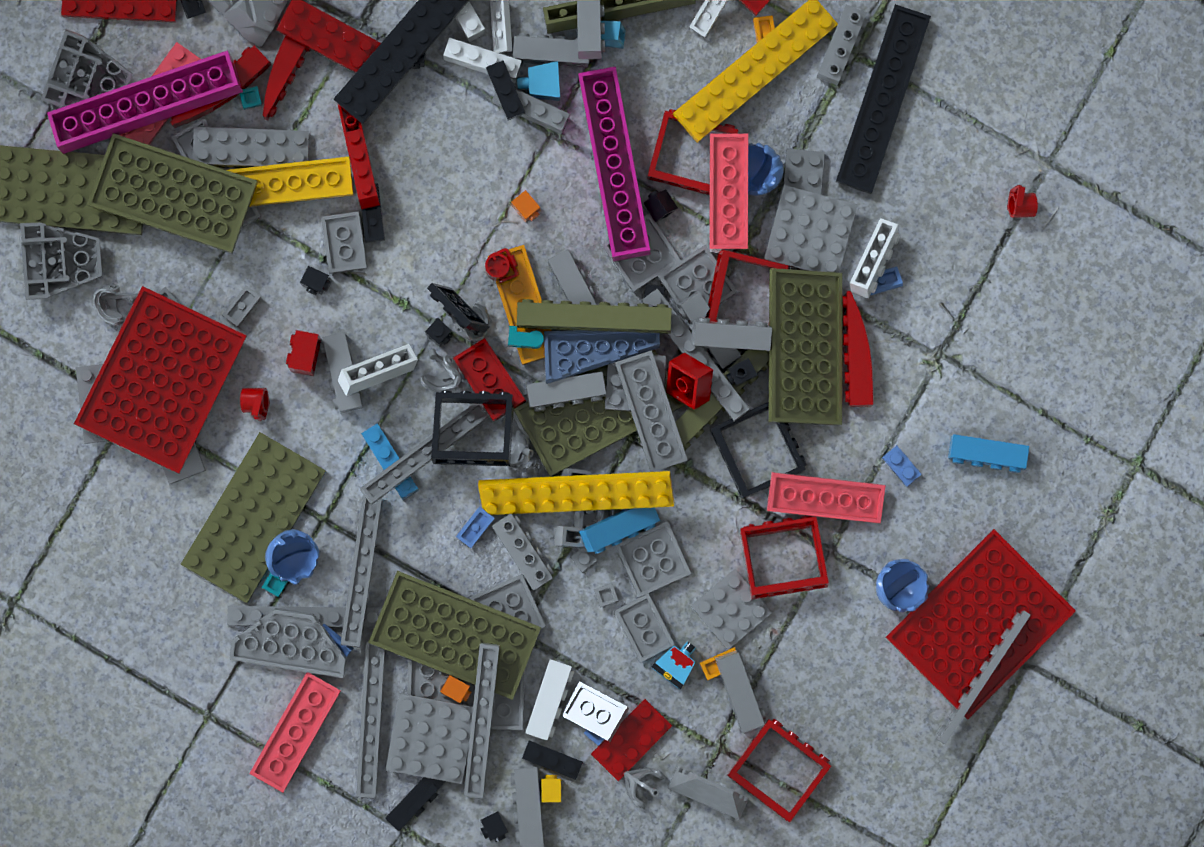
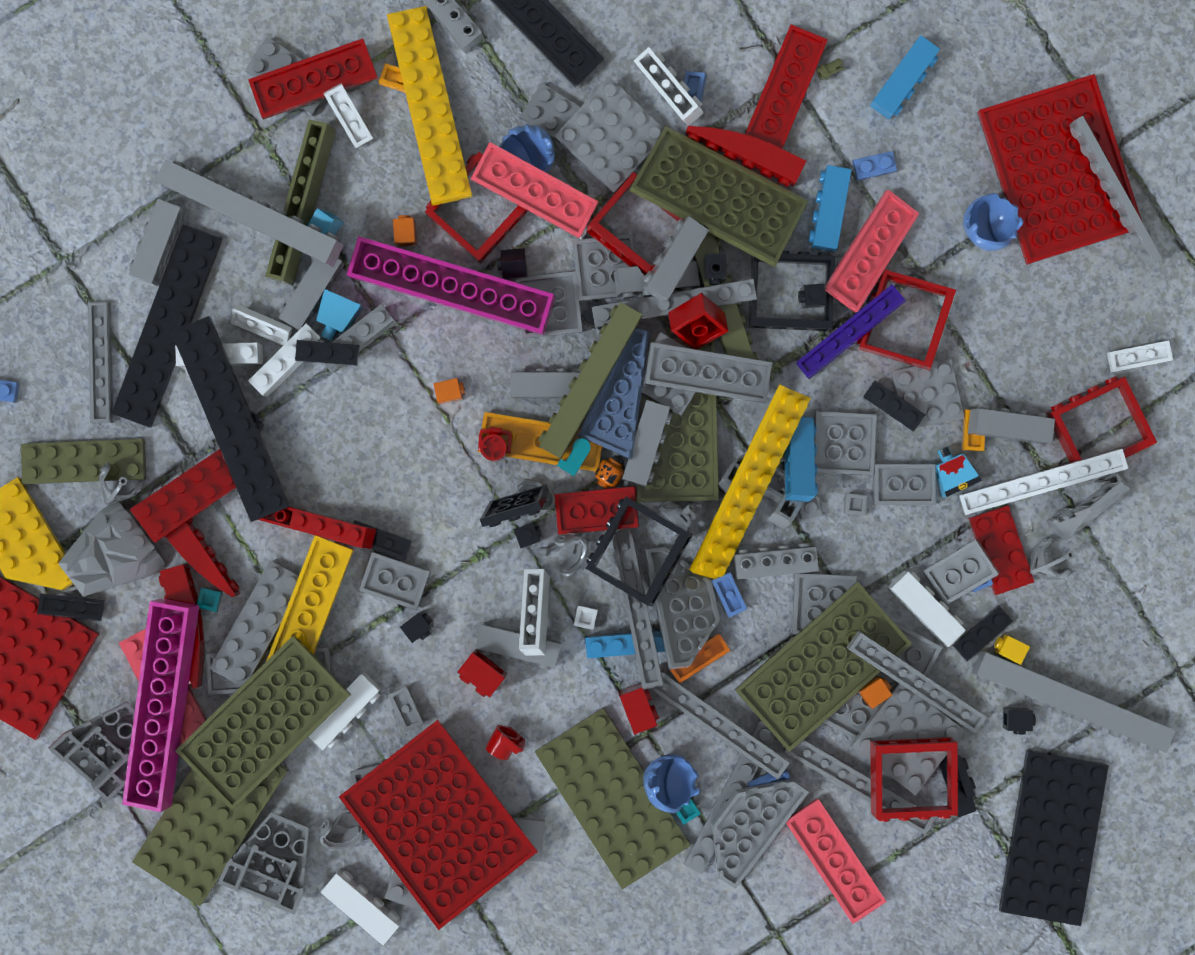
camera: 60 degrees left, 5 degrees up
(57, 353) = (361, 906): none -> white brick
(206, 256) = (363, 691): none -> white brick
(341, 498) = (638, 709): none -> red brick
(394, 416) = (585, 617): none -> white plate
(408, 529) = (711, 651): none -> orange plate
(426, 741) = (880, 747): none -> red window
(443, 494) = (683, 608): none -> light grey plate
(525, 374) = (609, 473): none -> orange head
(640, 102) = (404, 231): none -> orange brick
(706, 584) = (894, 405): none -> black plate
(706, 741) = (1043, 481): none -> white plate
(748, 514) = (851, 331): none -> dark purple plate
(760, 465) = (812, 296): none -> black brick
(845, 446) = (830, 208): none -> dark azure brick
(857, 773) = (1139, 356): none -> white plate
(927, 357) = (786, 86): none -> red plate
(963, 386) = (829, 69): none -> olive pin

